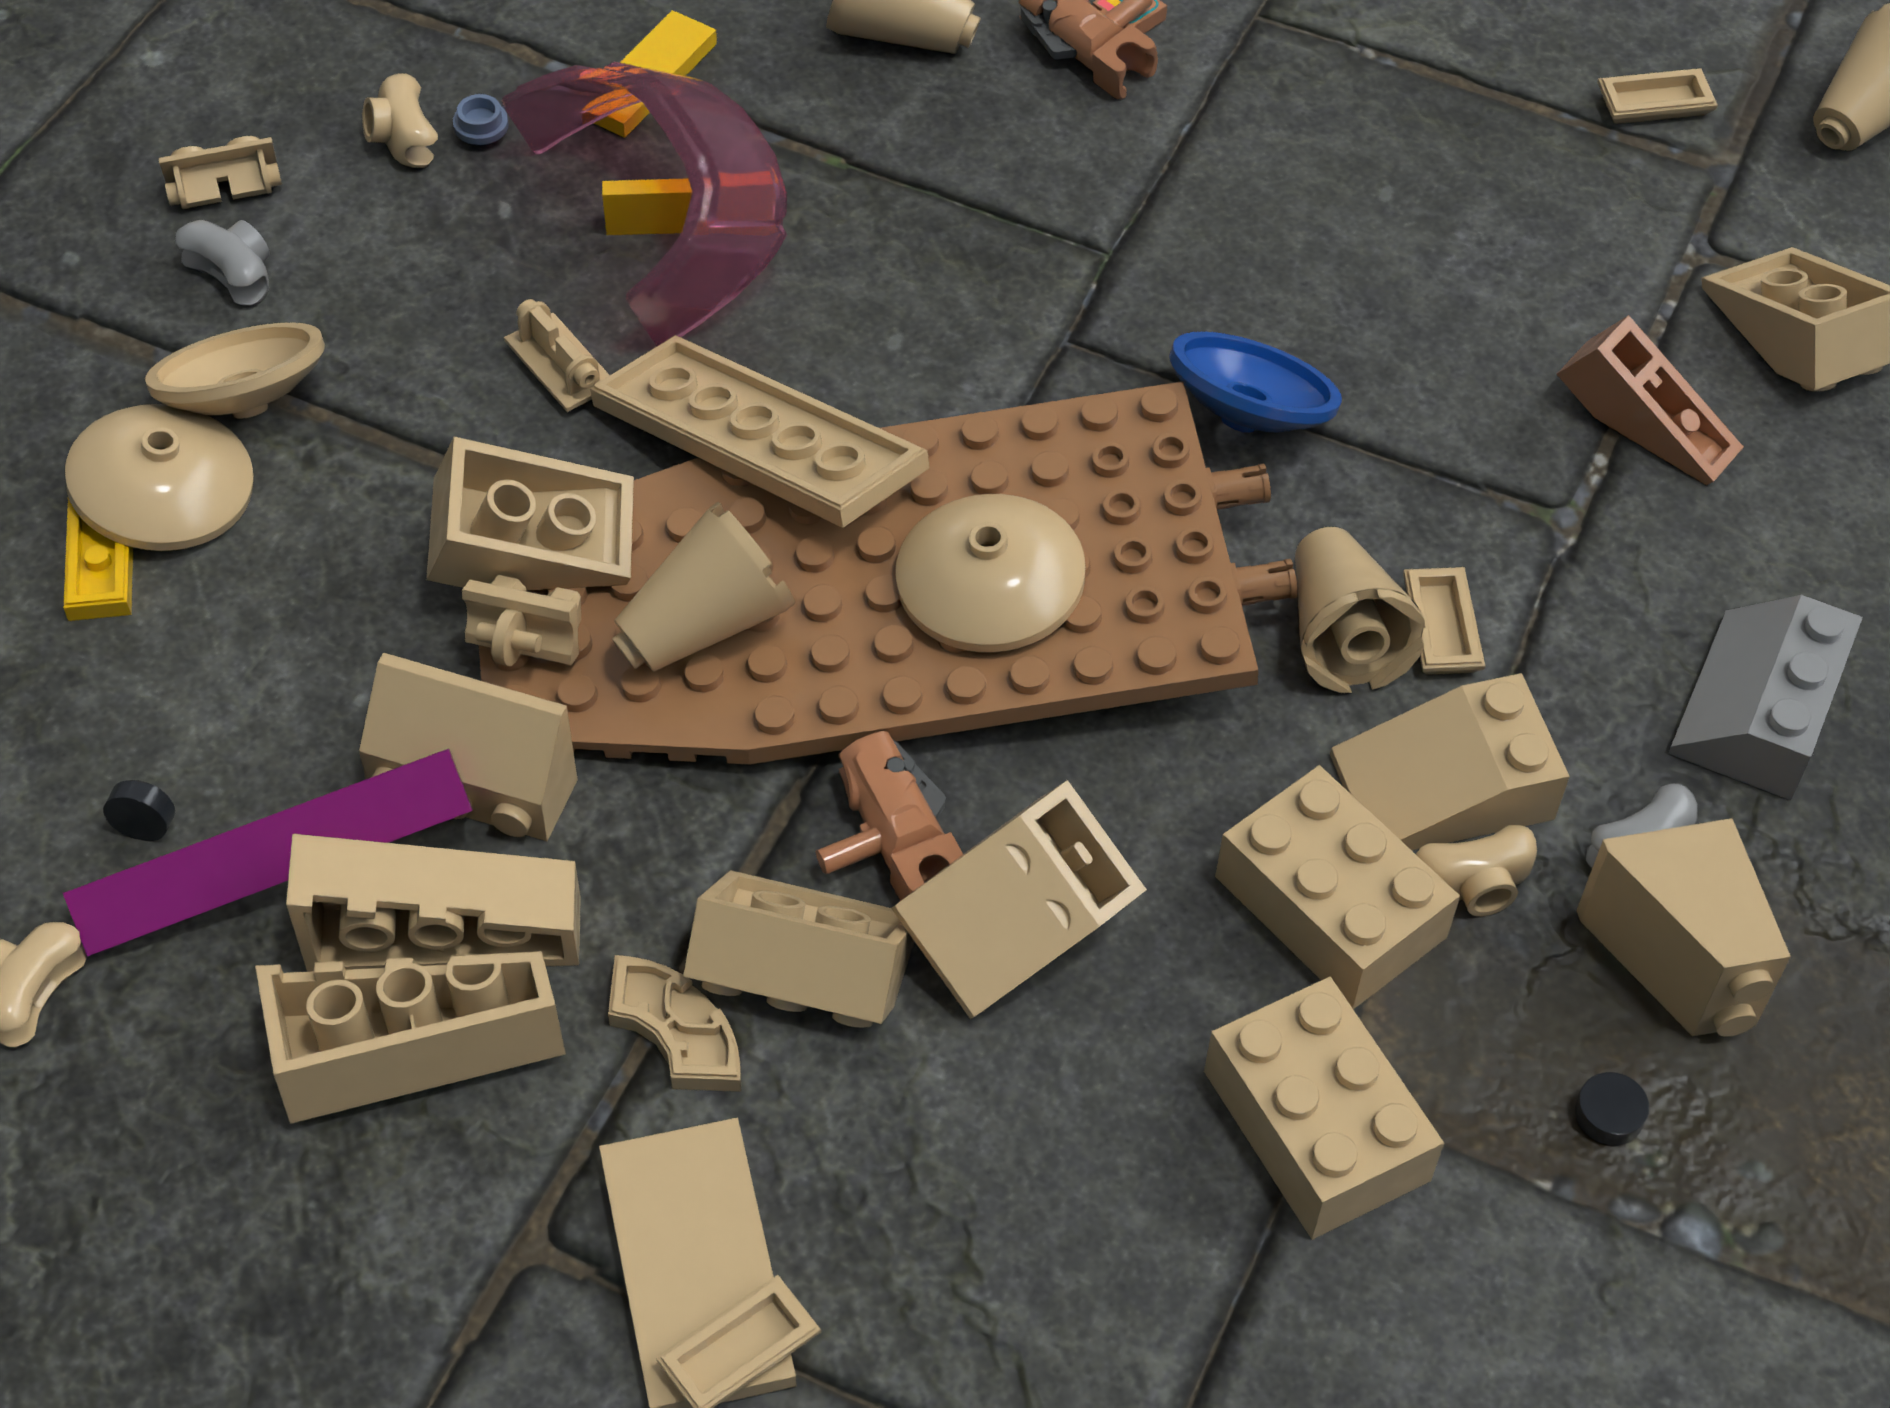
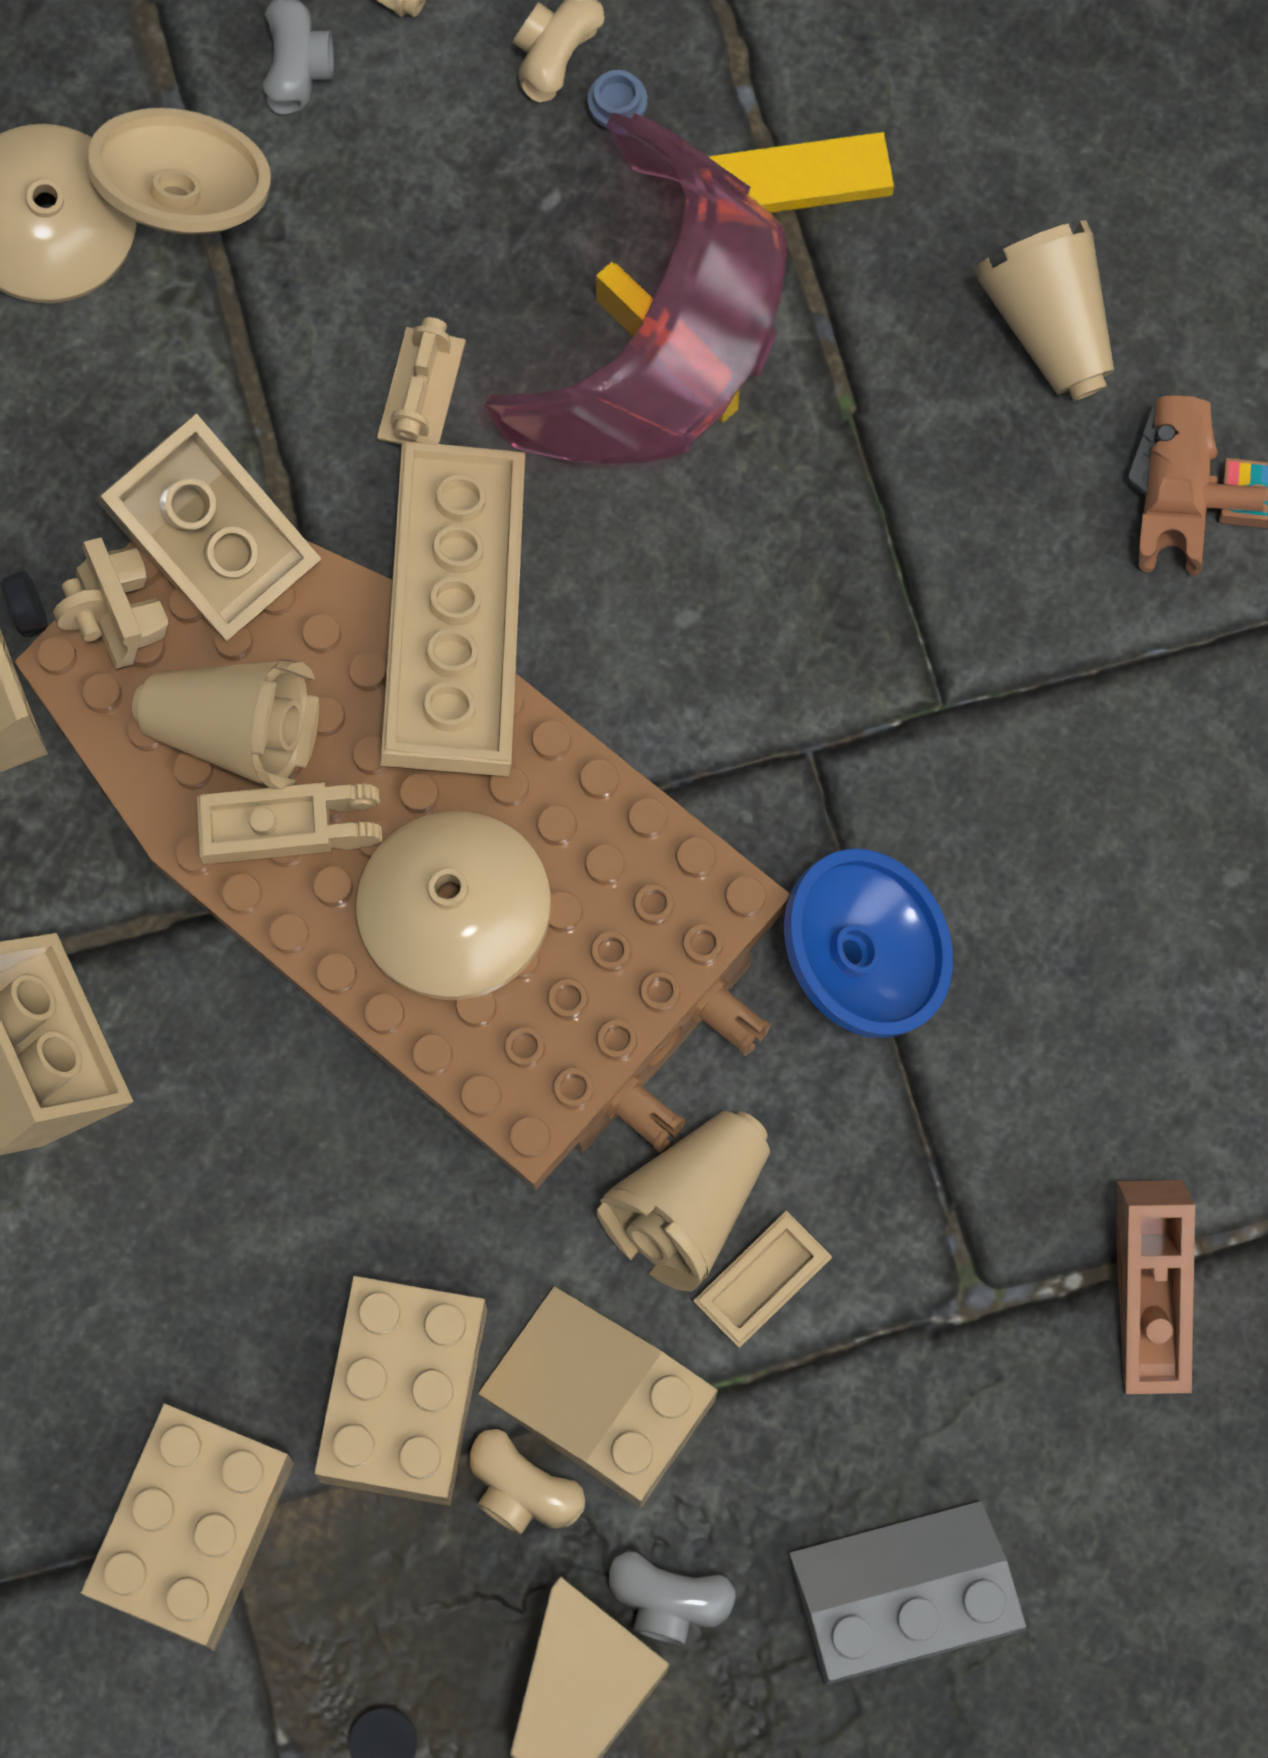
camera: 50 degrees right, 20 degrees up
(816, 627) = (283, 821): none -> tan hinge
(897, 812) = (199, 1015): nougat piece -> none
(1018, 899) = (172, 1169): tan slope -> none

